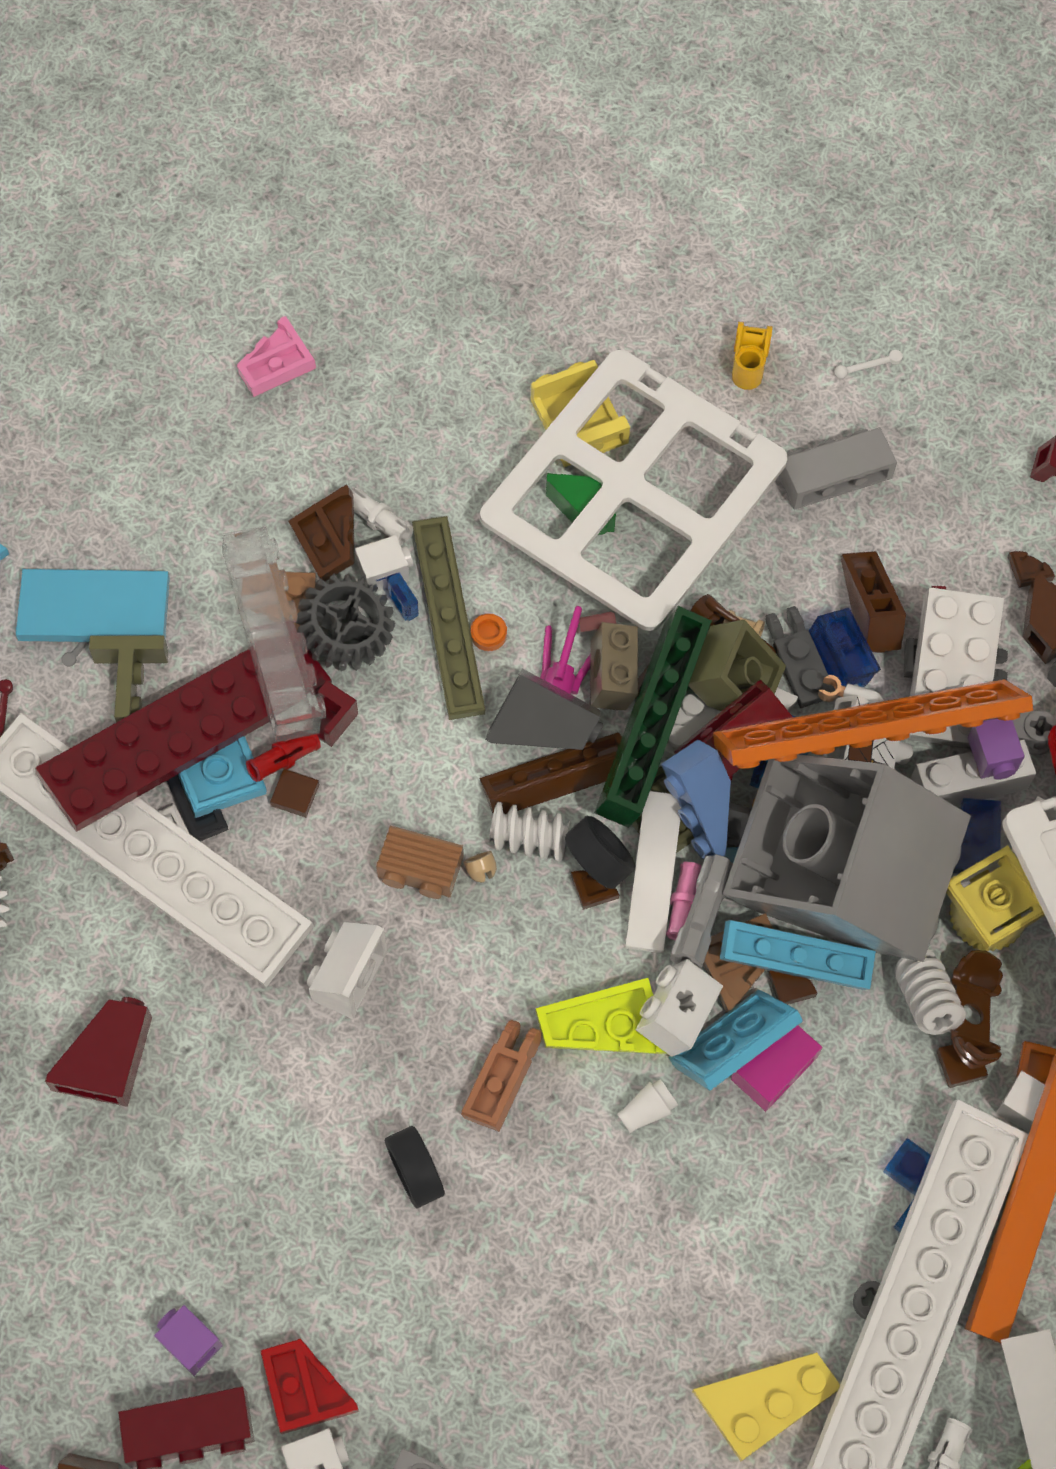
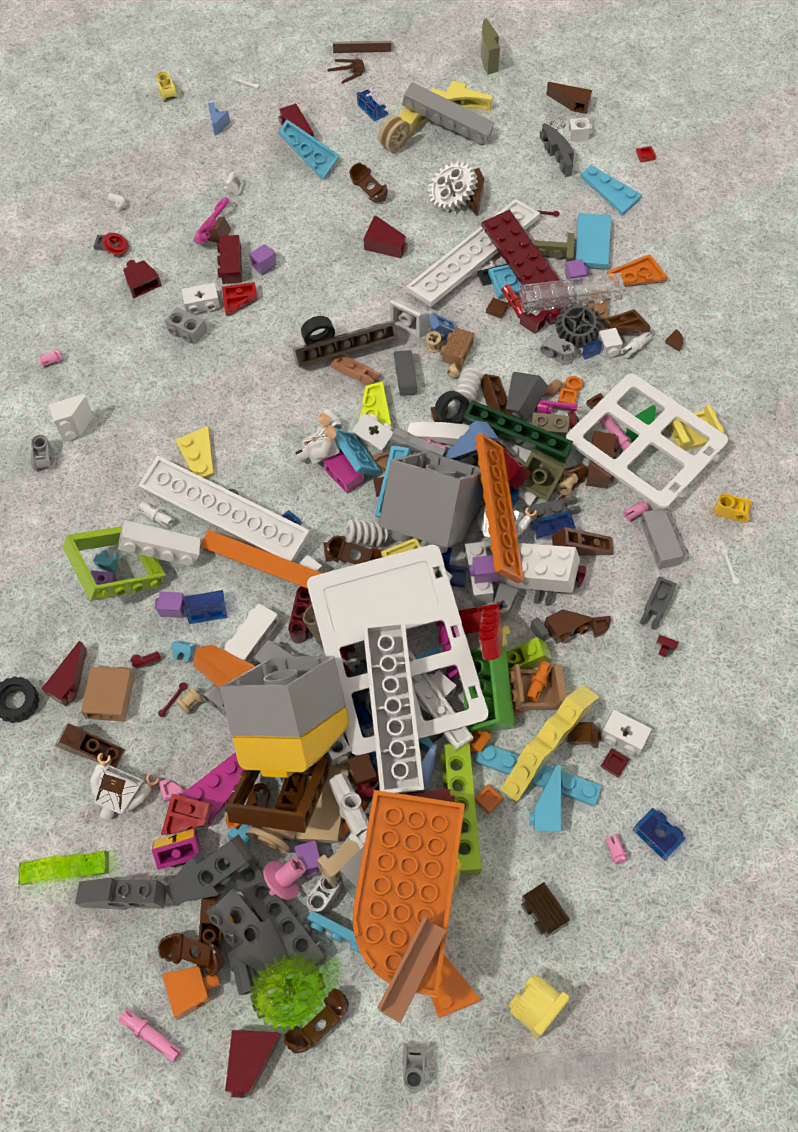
camera: 100 degrees right, 5 degrees down
(182, 518) = (640, 271): none -> orange wing
(193, 635) = (575, 269): none -> medium lavender brick
(276, 360) = (724, 310): bright pink wing -> none
(358, 447) = (675, 340): none -> reddish brown tile
(368, 896) = (441, 325): none -> medium blue slope
(403, 666) = (557, 348): none -> light grey piece
(416, 902) = (436, 338): none -> tan bush
(439, 1103) = (345, 343): none -> dark brown brick
(448, 618) = (584, 369): olive tile -> none
(497, 964) = (405, 372): none -> dark grey beam
(505, 668) = (553, 387): none -> medium nougat arm
(523, 642) = (567, 396): none -> orange tile
(533, 589) = (591, 403): none -> reddish brown tile
(622, 537) = (623, 441): none -> bright pink pin
(648, 564) = (596, 475): none -> reddish brown brick
(725, 1117) = (321, 444): none -> white torso
(780, 512) = (636, 510): none -> bright pink pin
(968, 475) = (658, 600): none -> dark grey hinge

